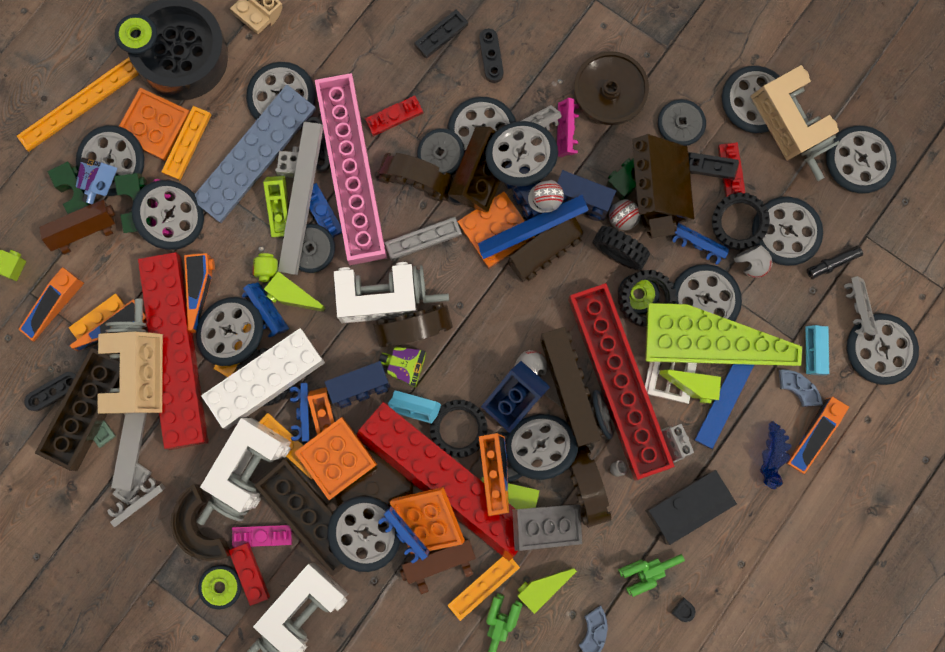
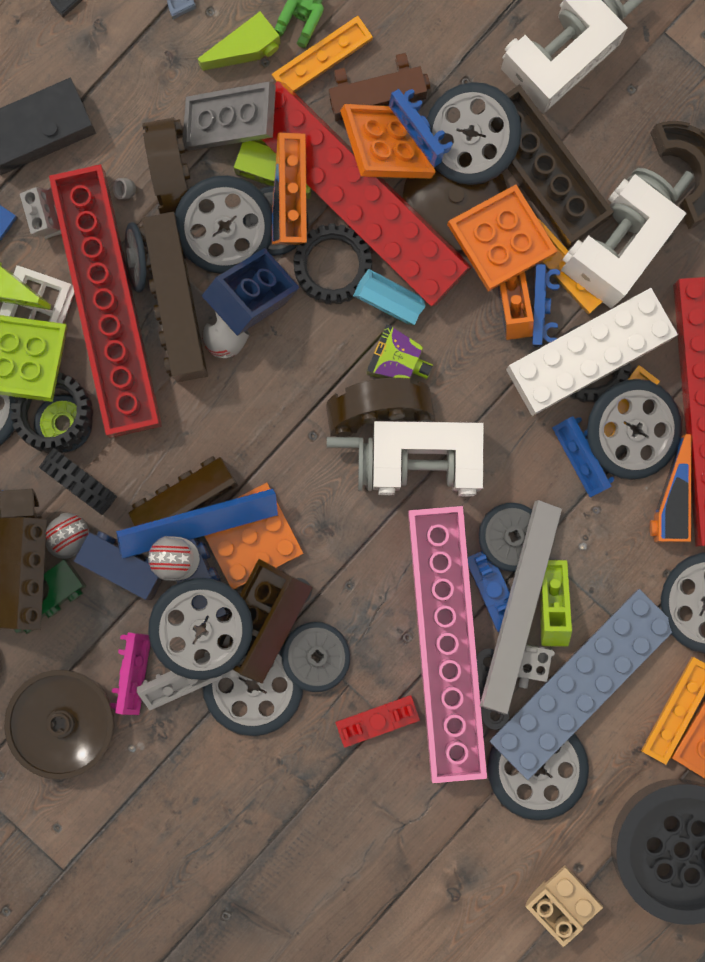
camera: 175 degrees left, 5 degrees up
(207, 587) = (665, 109): lime wheel -> none
(249, 573) = (629, 105): red plate -> none
(262, 535) = (610, 153): dark pink plate -> none
(265, 267) = (578, 514): lime head -> none
(288, 293) = (547, 474): lime slope -> none
(358, 385) = (463, 333): dark blue brick -> none
(417, 172) = (357, 625): dark brown brick -> none
(423, 238) = (354, 534): light grey tile -> none
(441, 33) = (296, 838): black plate -> none
(491, 62) = (230, 785): black plate -> none
(648, 573) = (104, 48): bright green plant -> none

